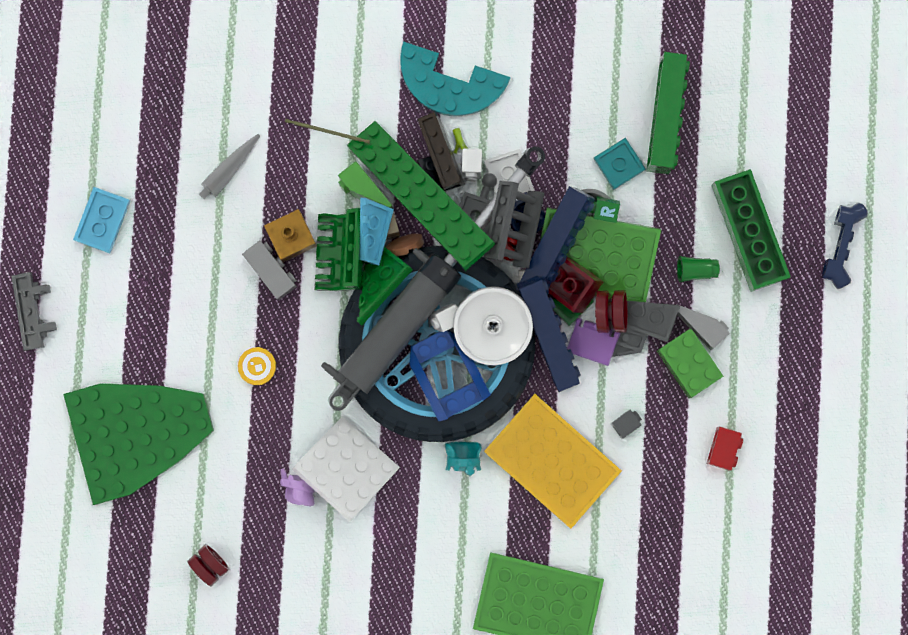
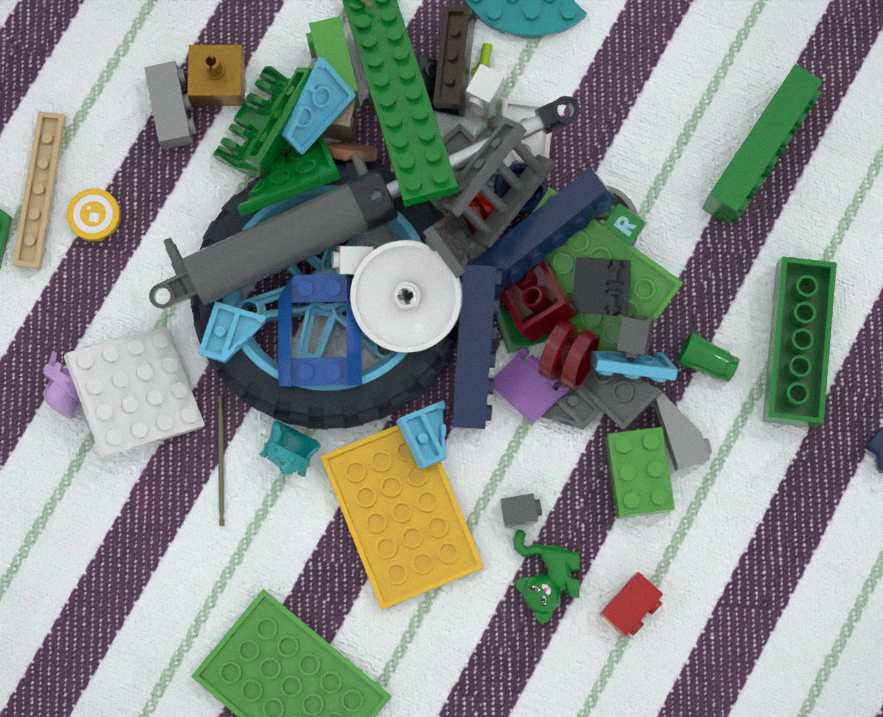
camera: 25 degrees right, 5 degrees down
(213, 367) = (39, 190): none -> tan plate
(389, 402) = (228, 331): none -> medium azure wing
(421, 484) = (221, 461): none -> olive piece
(502, 277) = (451, 241): none -> dark grey wing
(544, 405) = (425, 434): none -> medium azure wing
(610, 256) = (601, 286): none -> black hinge
(619, 163) = (672, 182): teal tile -> none
(647, 278) = (635, 335): none -> dark grey brick
(665, 467) = (543, 591): none -> green animal
(667, 292) = (656, 368): none -> medium azure wing

